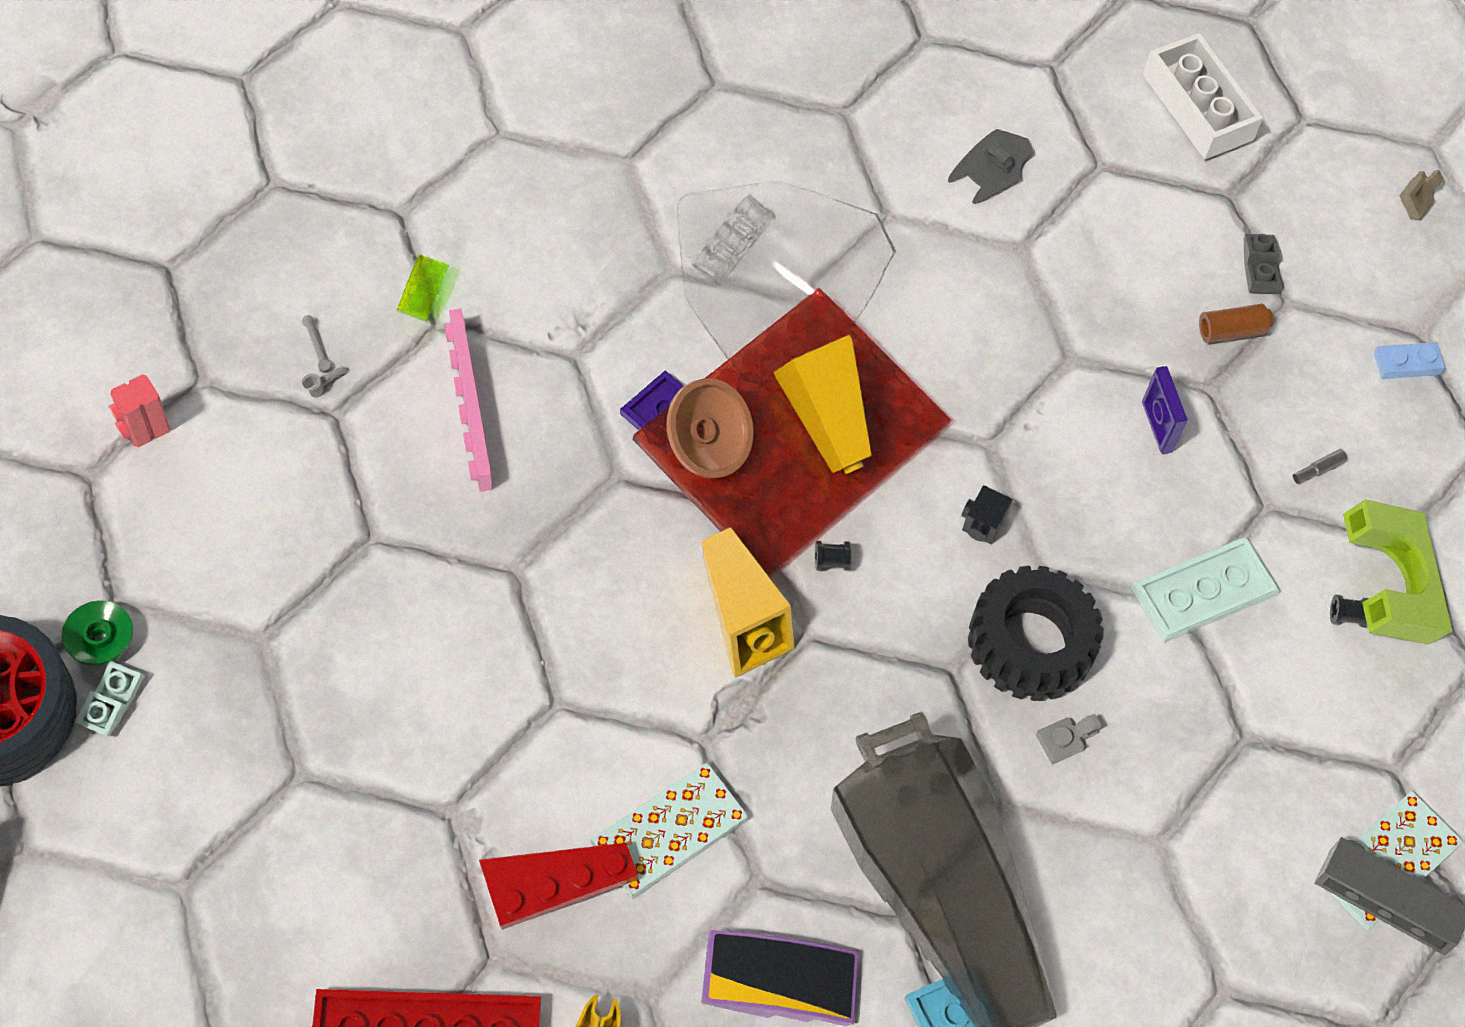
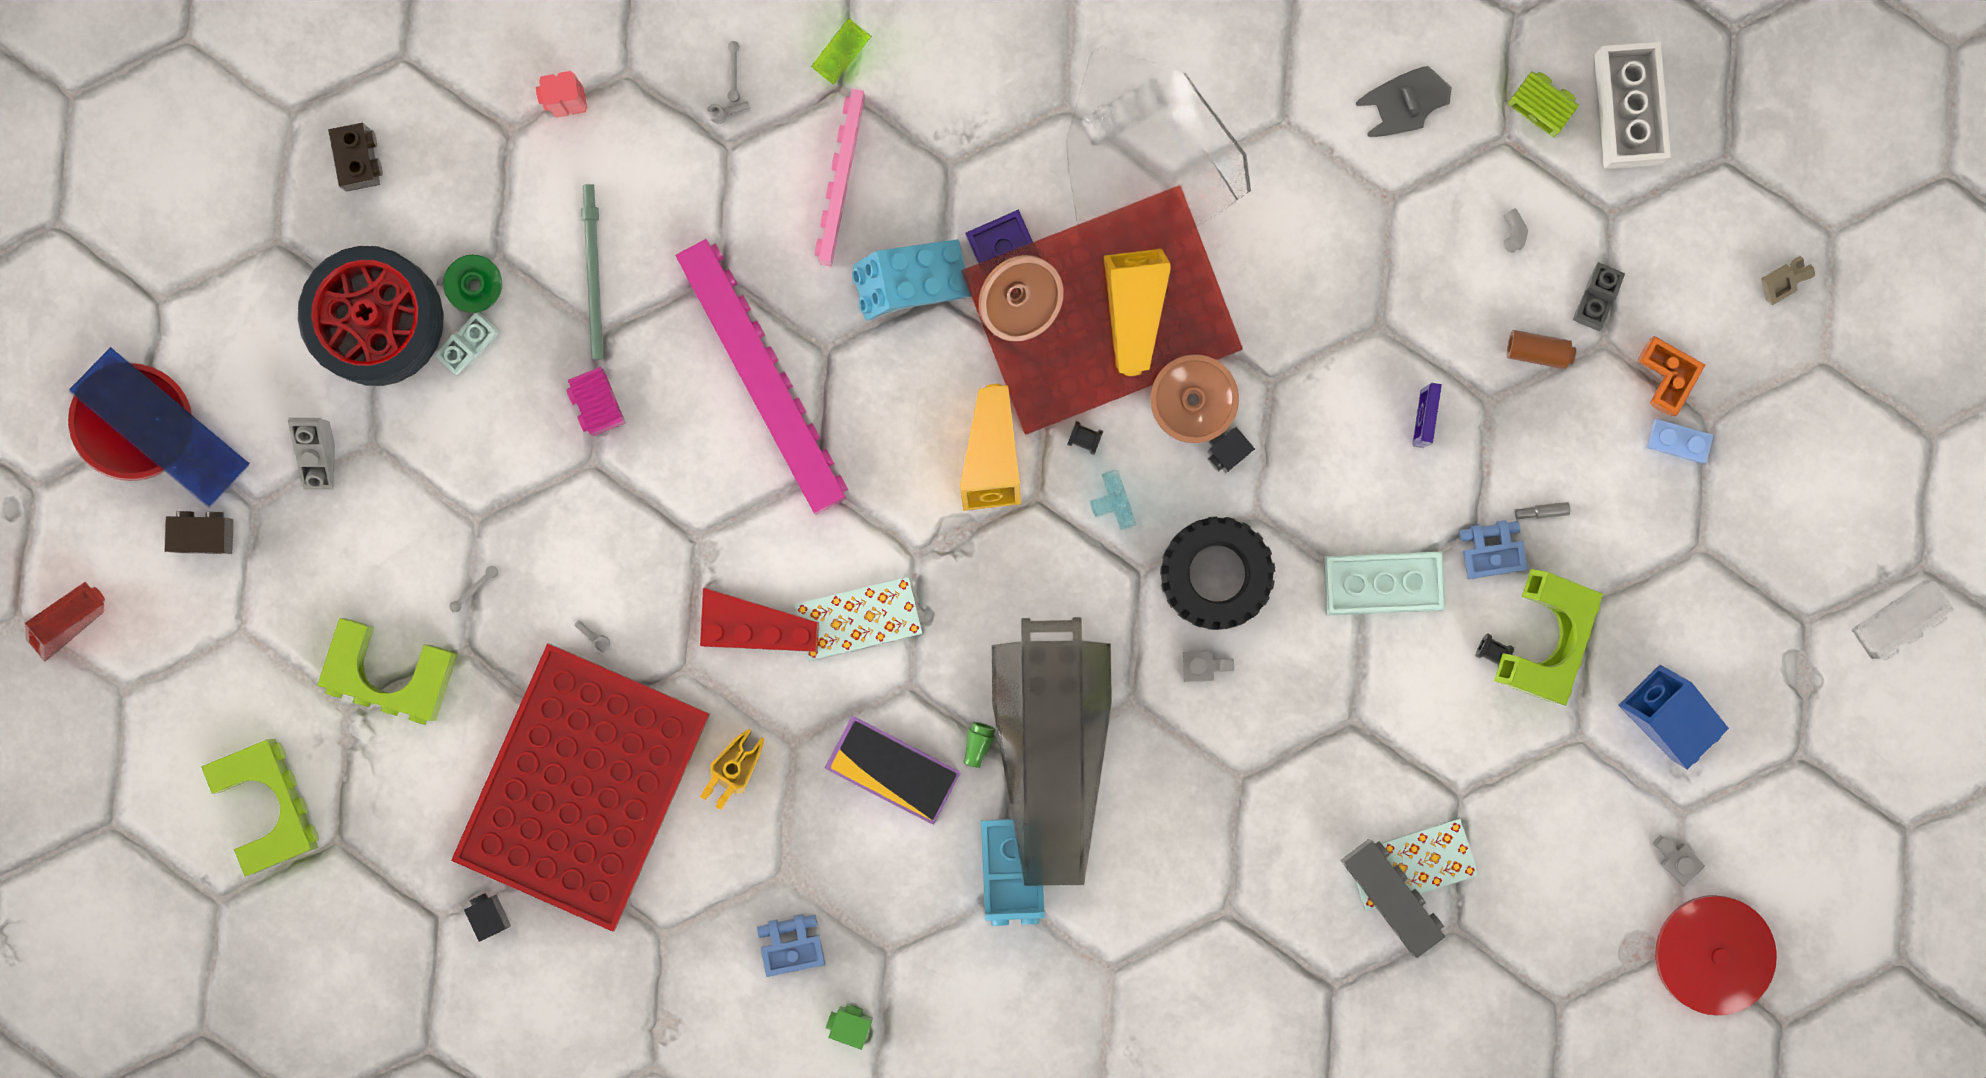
camera: 30 degrees right, 25 degrees up
(209, 525) = (590, 215): none -> sand green bar
(219, 939) = (491, 572): none -> light grey hinge
(281, 705) = (595, 401): none -> dark pink brick
(369, 966) = (593, 637): none -> light grey hand
(463, 617) = (761, 376): none -> dark pink brick
(576, 461) = (909, 277): none -> medium azure bracket
(863, 911) = (979, 741): none -> bright green cone
(893, 604) = (1114, 501): none -> clear light blue tile
(932, 459) = (1215, 393): none -> nougat dish
(1121, 123) = (1543, 103): none -> lime brick
(1155, 231) = (1518, 231): none -> light grey arm
(1299, 525) = (1494, 559): none -> medium blue plate
(1373, 298) = (1678, 374): none -> orange brick

